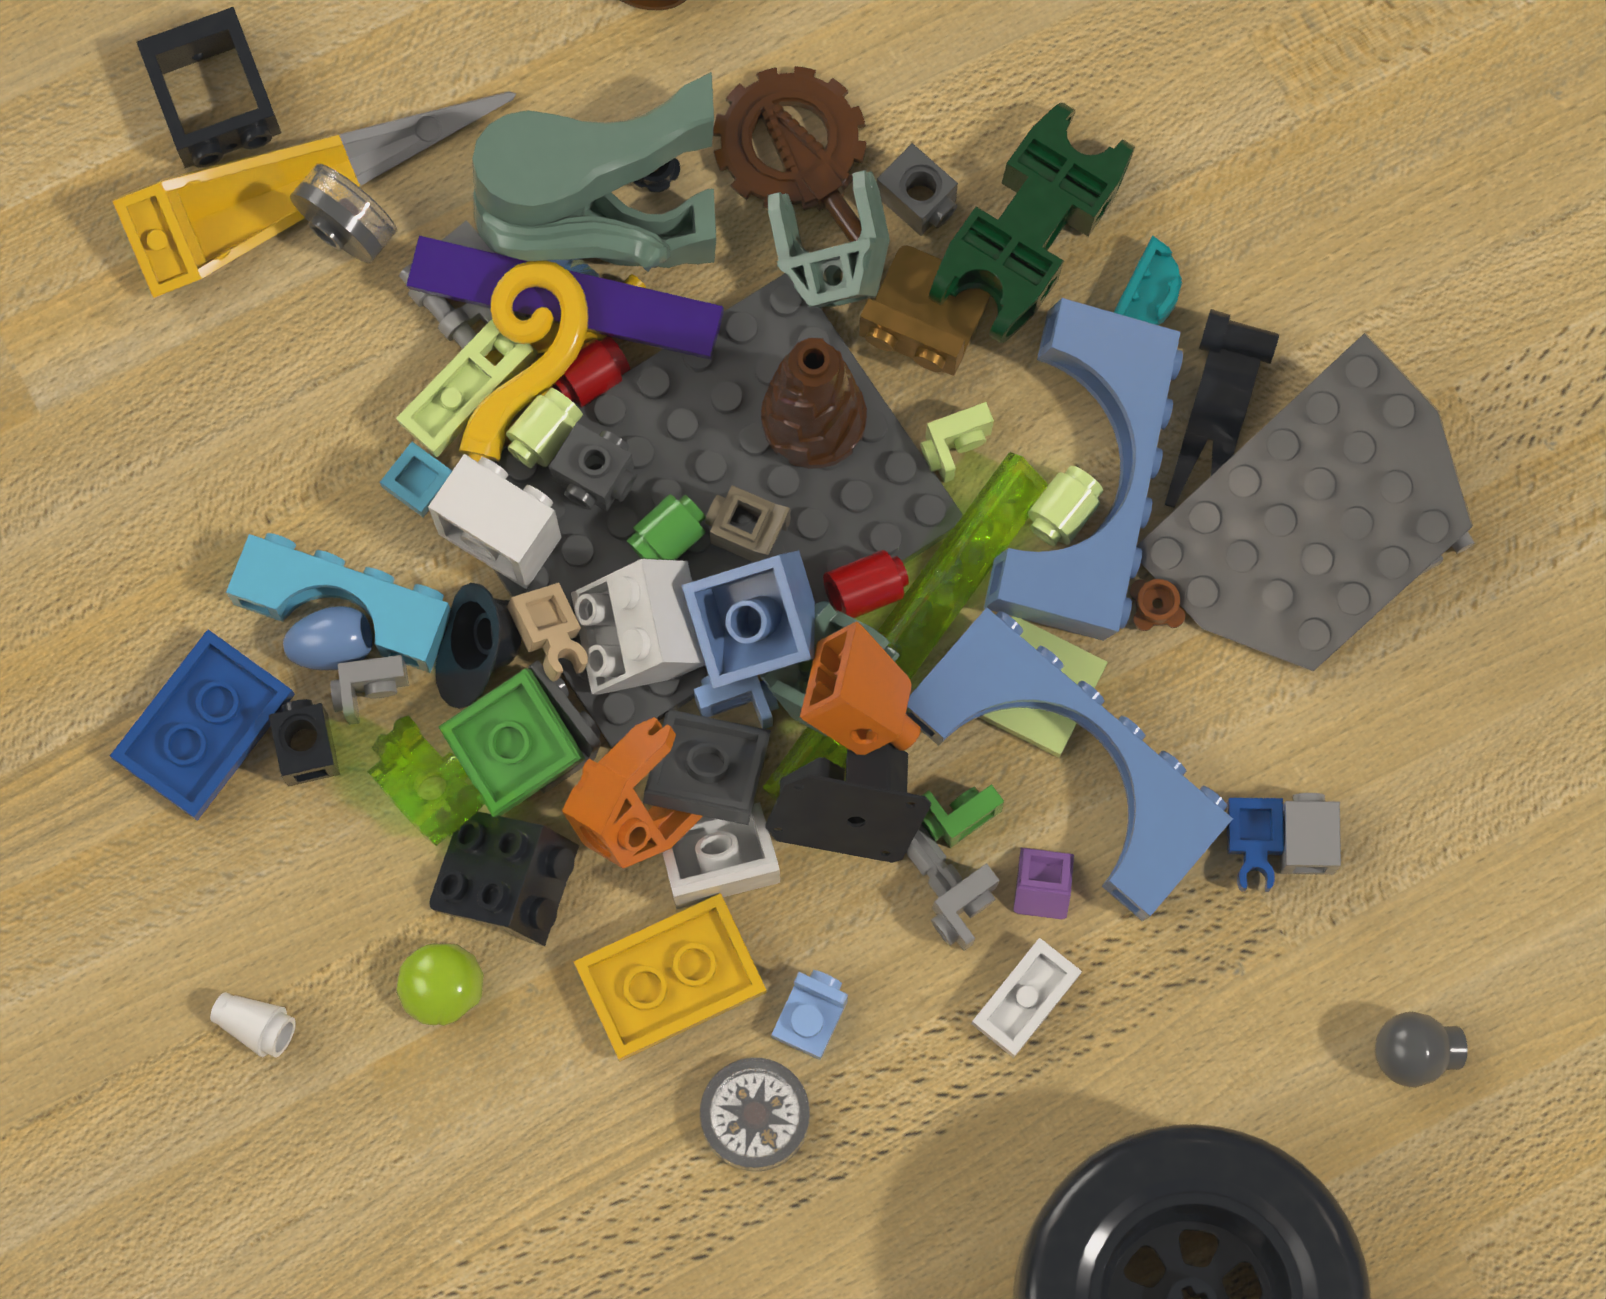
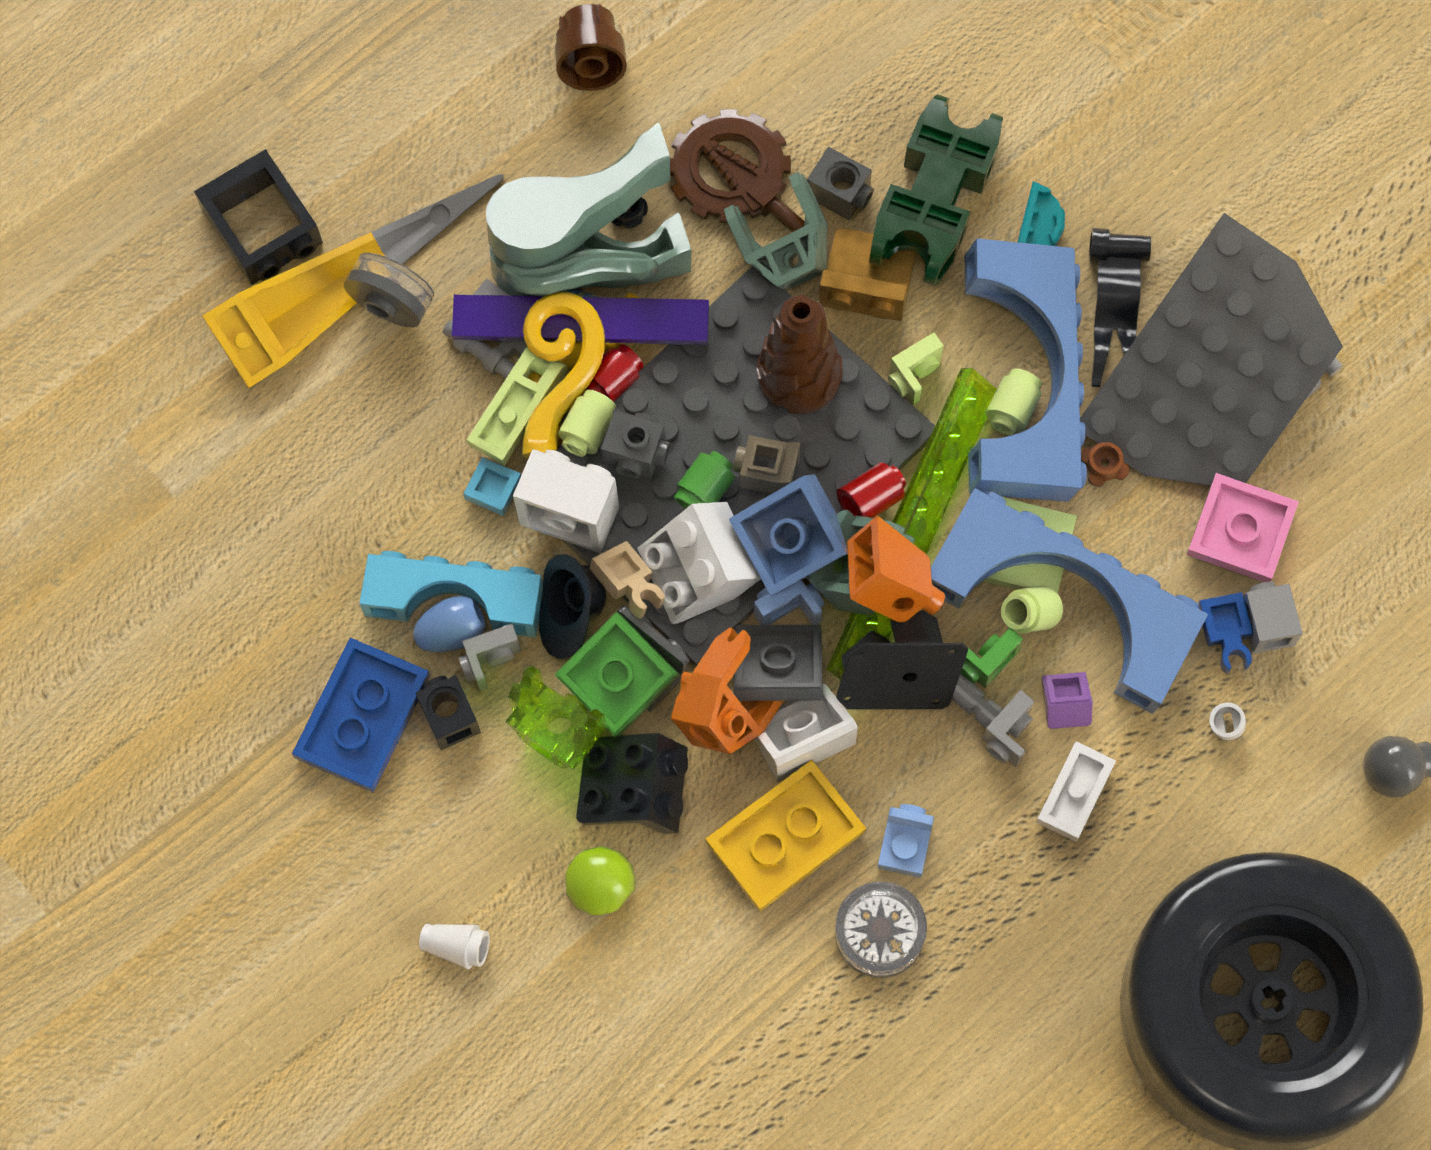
camera: 10 degrees left, 5 degrees down
(1024, 767) = (1032, 609): none -> yellowish green brick
(1216, 951) = (1219, 726): none -> white hinge
(1303, 719) = (1242, 528): none -> bright pink plate

